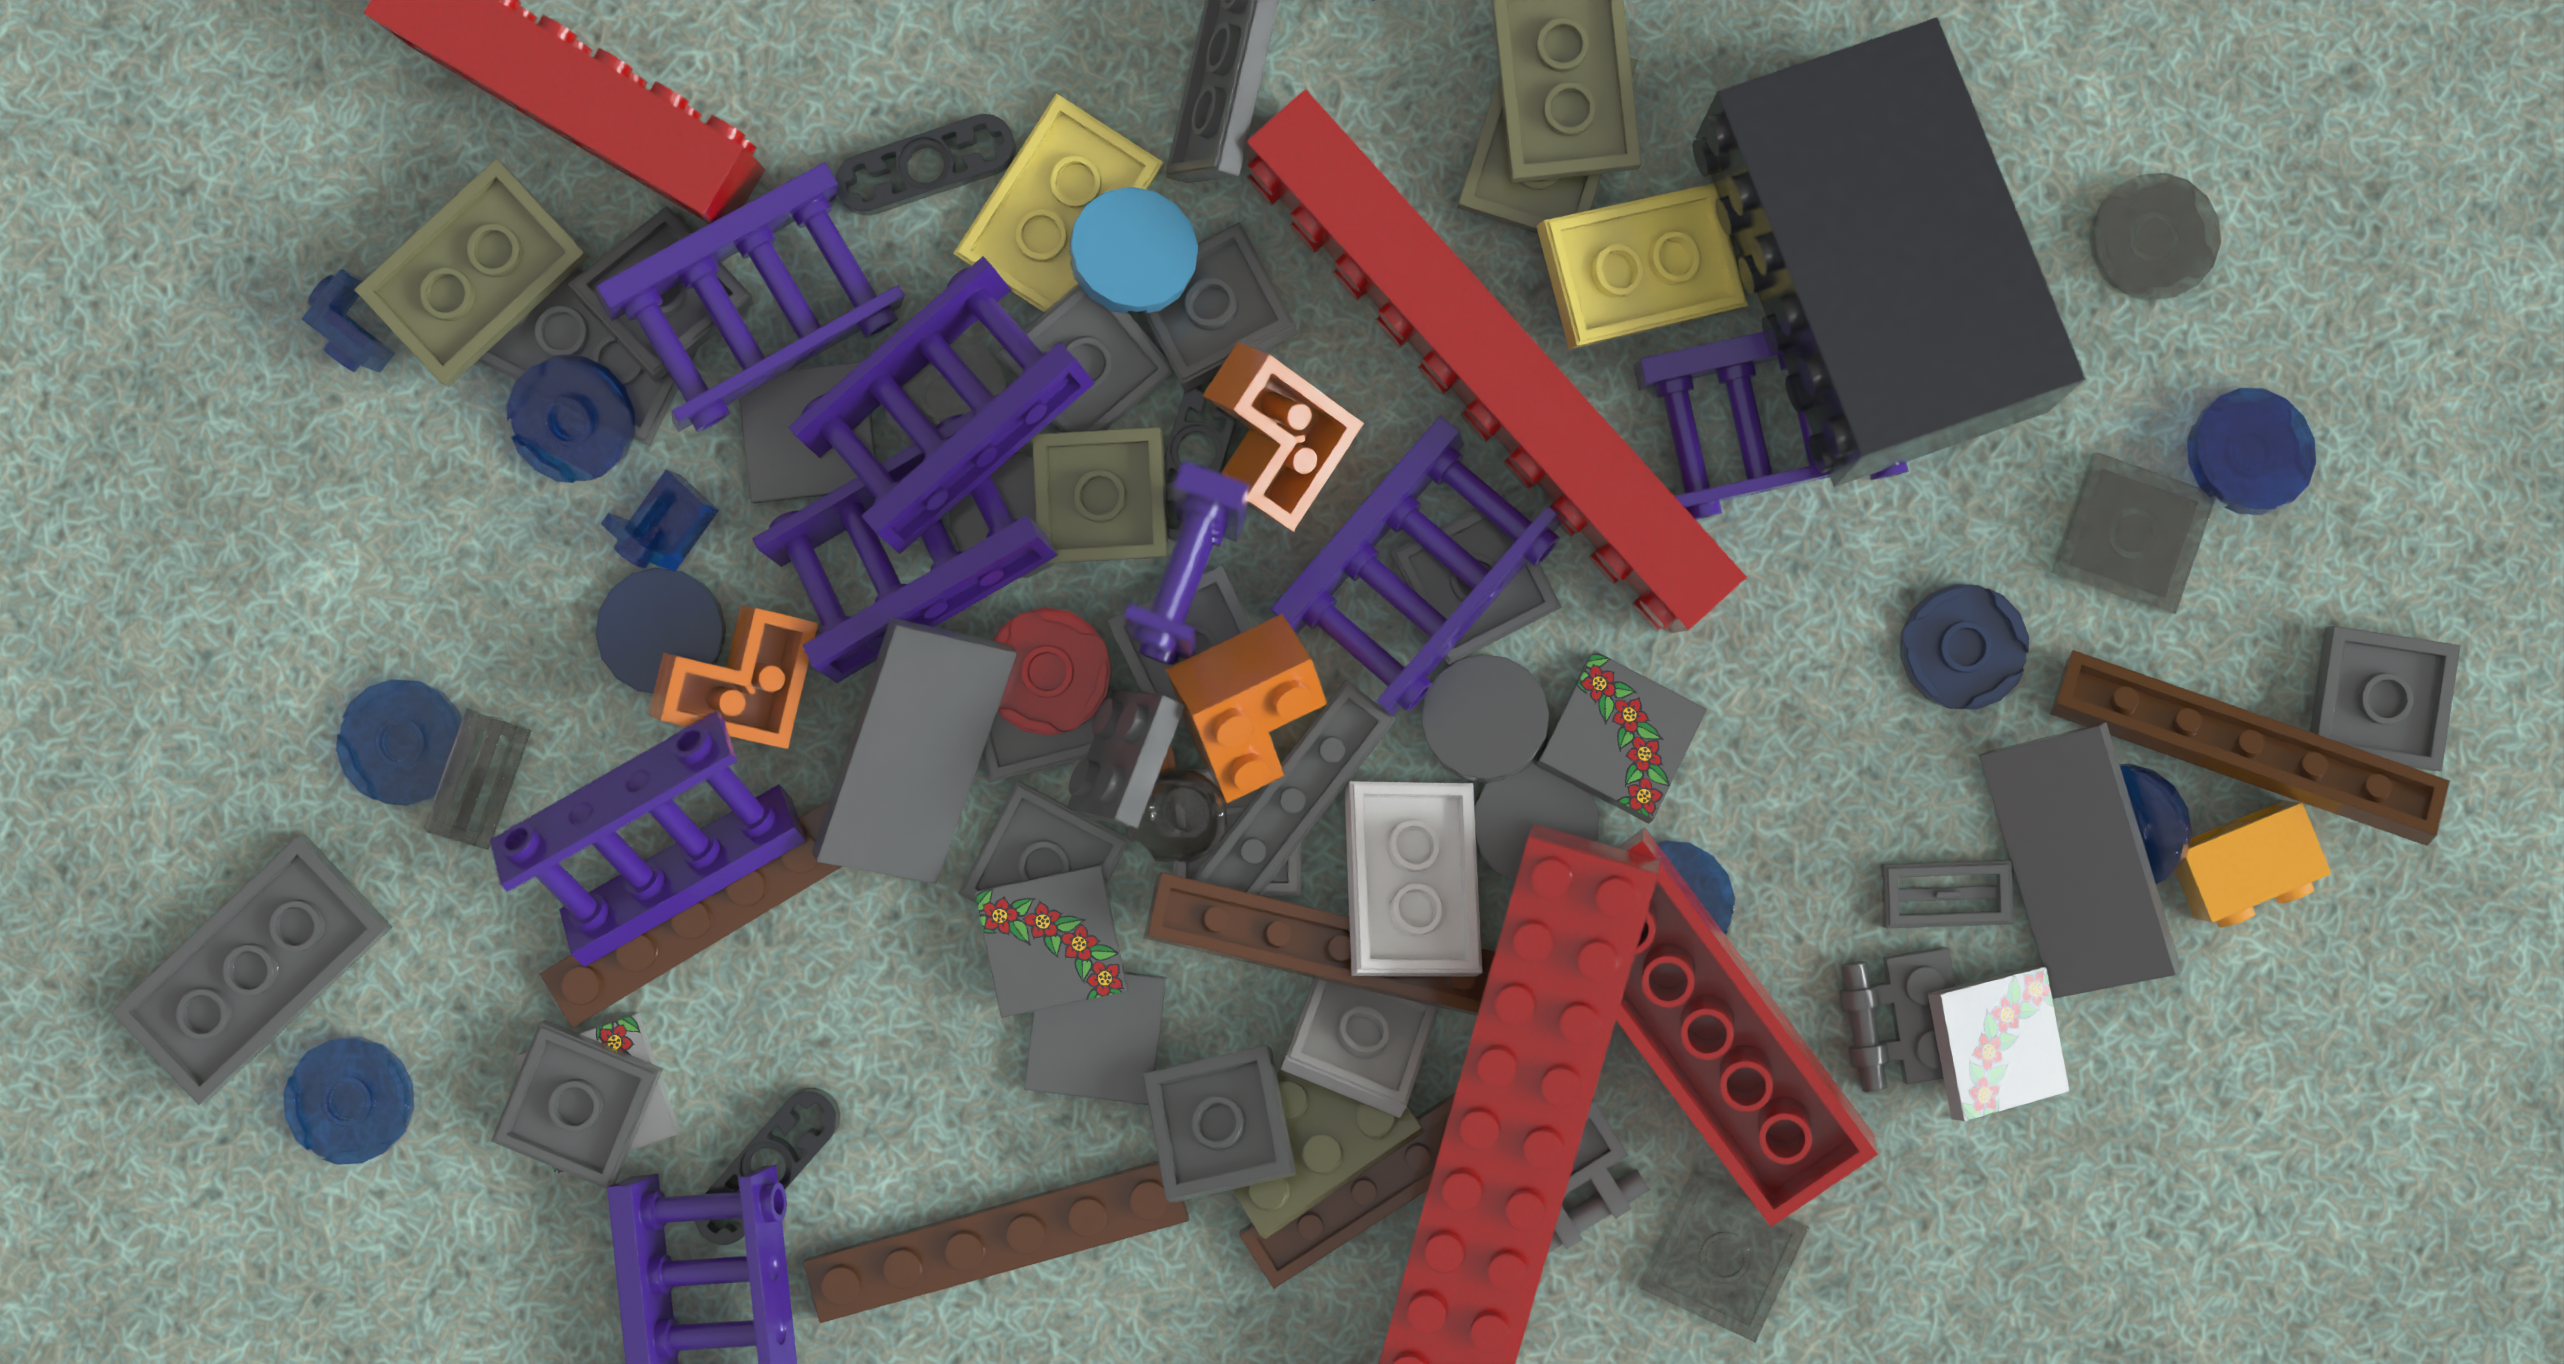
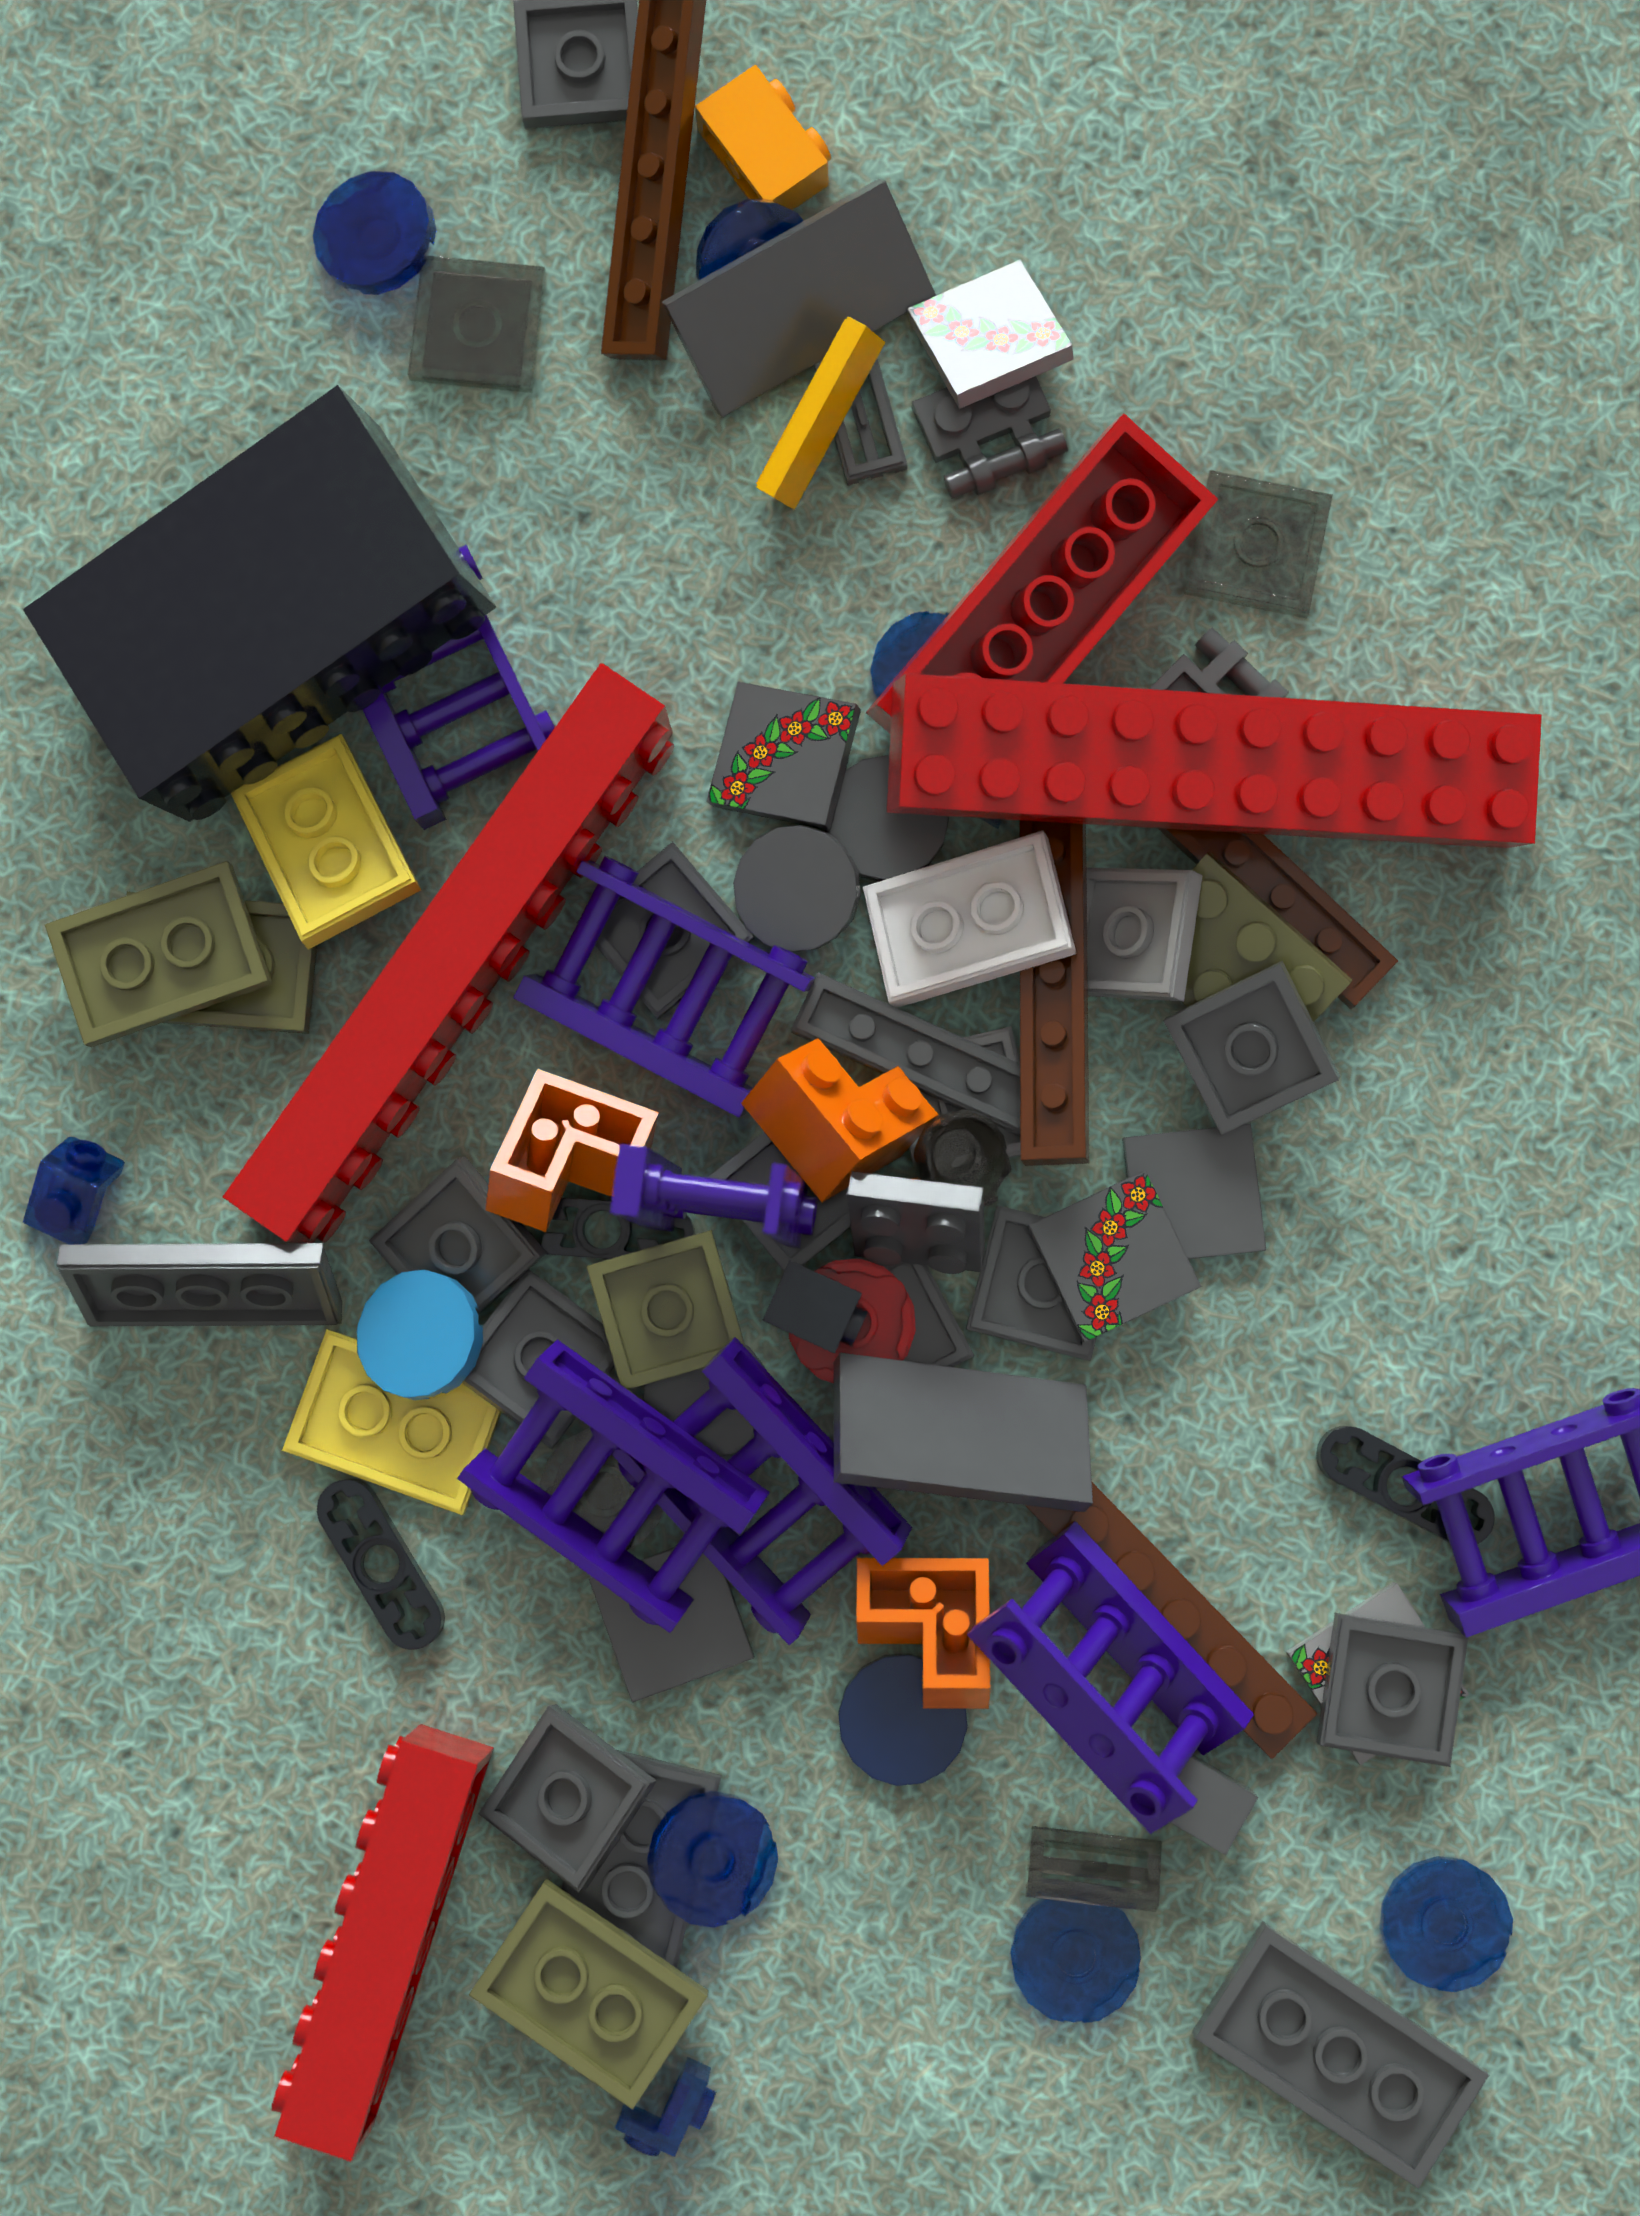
camera: 90 degrees left, 5 degrees down
(510, 915) = (1220, 1806): none -> dark grey brick
(663, 525) = (796, 1740): clear blue bracket -> none
(751, 234) = (486, 1718): dark purple fence -> none
(991, 1241) = (1422, 1247): reddish brown plate -> none
(1064, 639) = (816, 1308): none -> black brick
(1942, 646) = (631, 475): dark blue tile -> none
(1955, 853) = (820, 412): none -> yellow tile
(2155, 237) = (191, 369): clear smoke tile -> none

